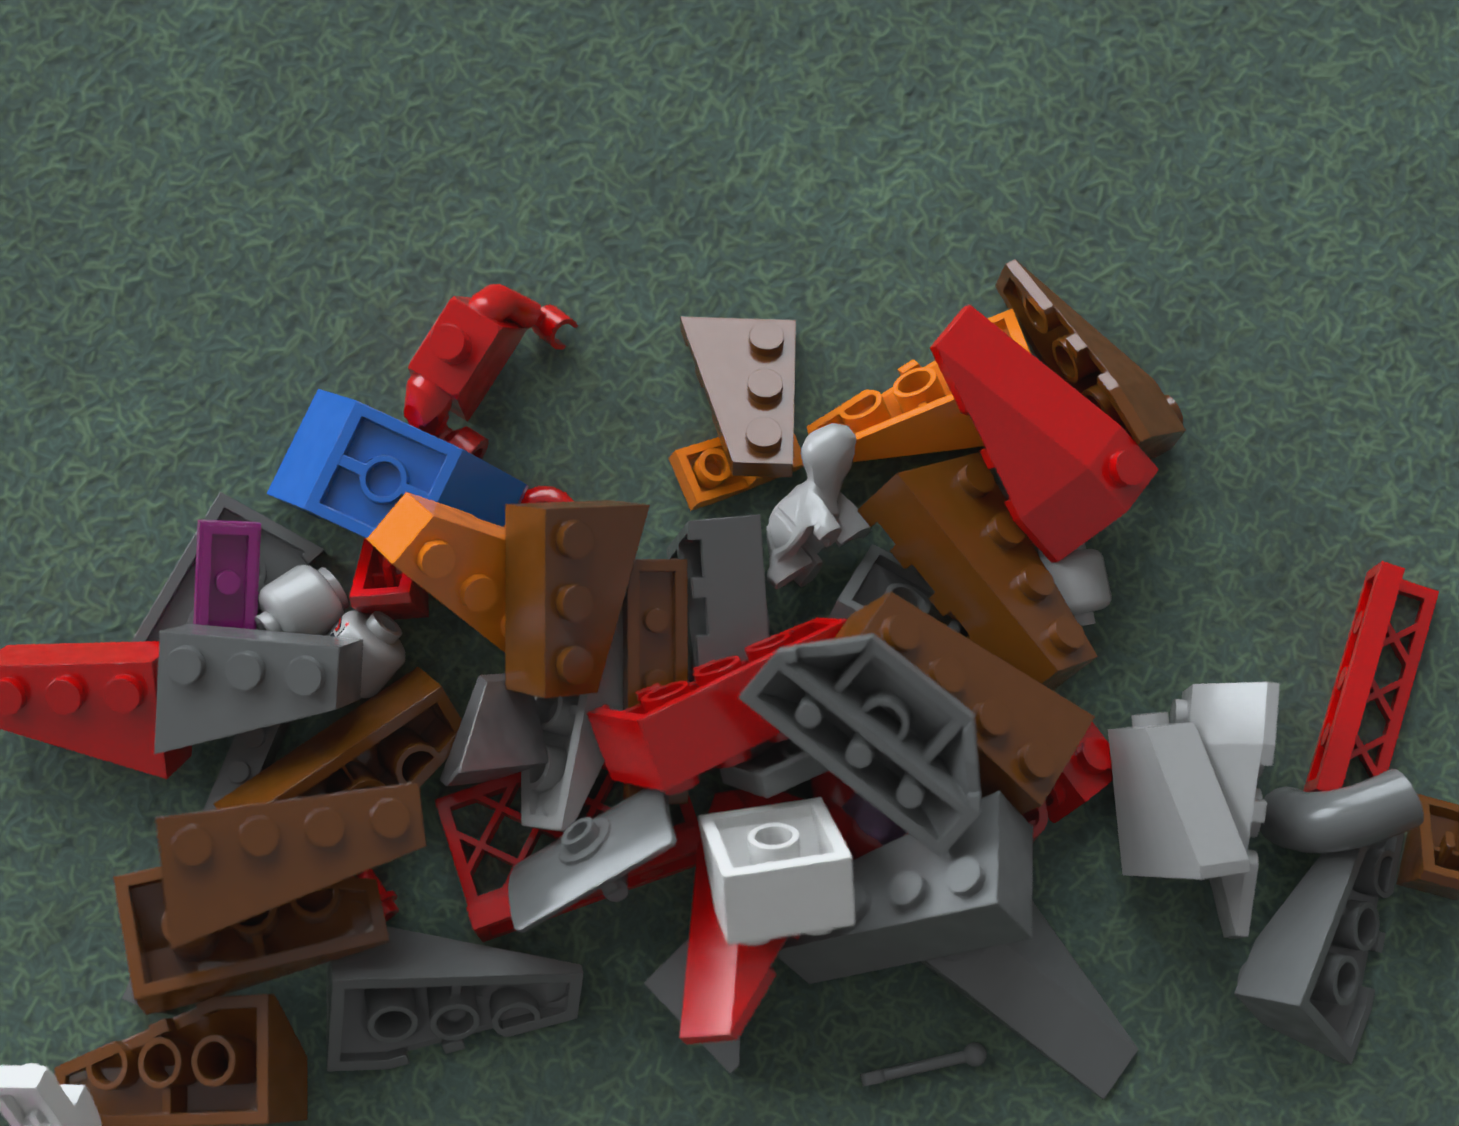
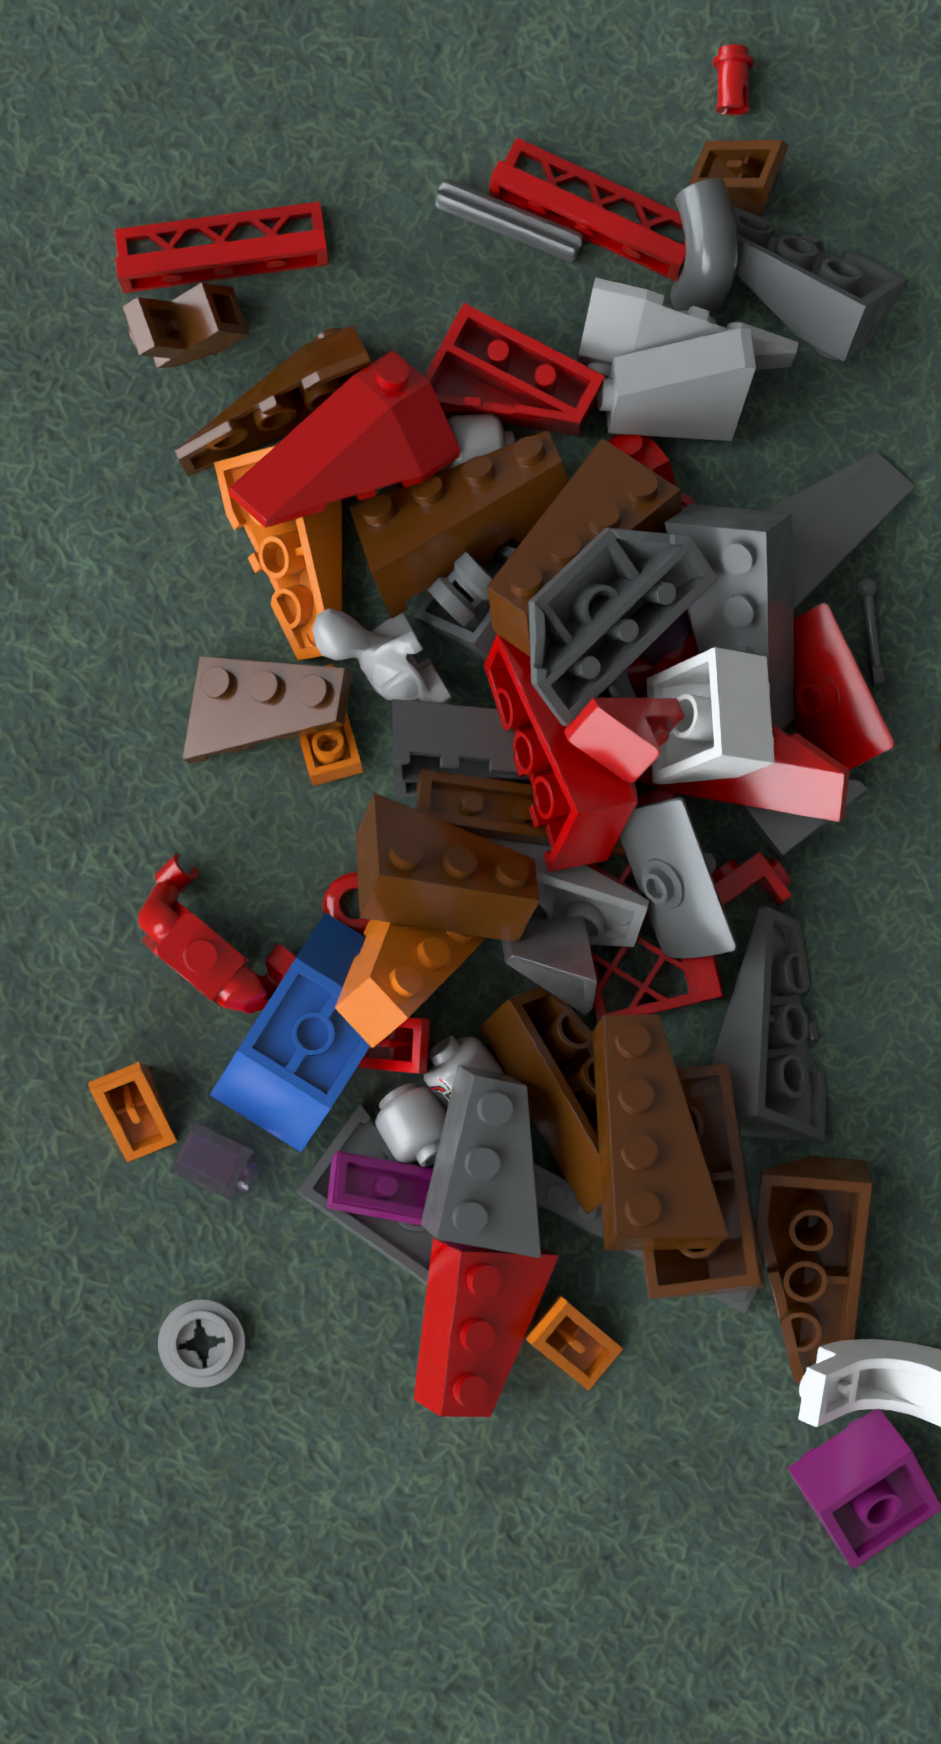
camera: 85 degrees left, 5 degrees up
(32, 404) = (185, 1363): none -> light grey gear
(80, 808) = (573, 1342): none -> orange slope
(246, 404) = (216, 1162): none -> clear purple brick
(295, 312) = (133, 1110): none -> orange slope
(613, 932) = (735, 879): none -> red bracket
(743, 767) = (625, 732): none -> slope
(835, 1023) = (831, 693): none -> red shield
(893, 572) = (472, 579): none -> dark grey wheel
(1155, 607) = (508, 374): none -> red wedge
(1156, 257) = (187, 327): none -> reddish brown brick
(1243, 290) = (222, 258): none -> red fence
(1340, 595) = (509, 220): none -> dark grey axle

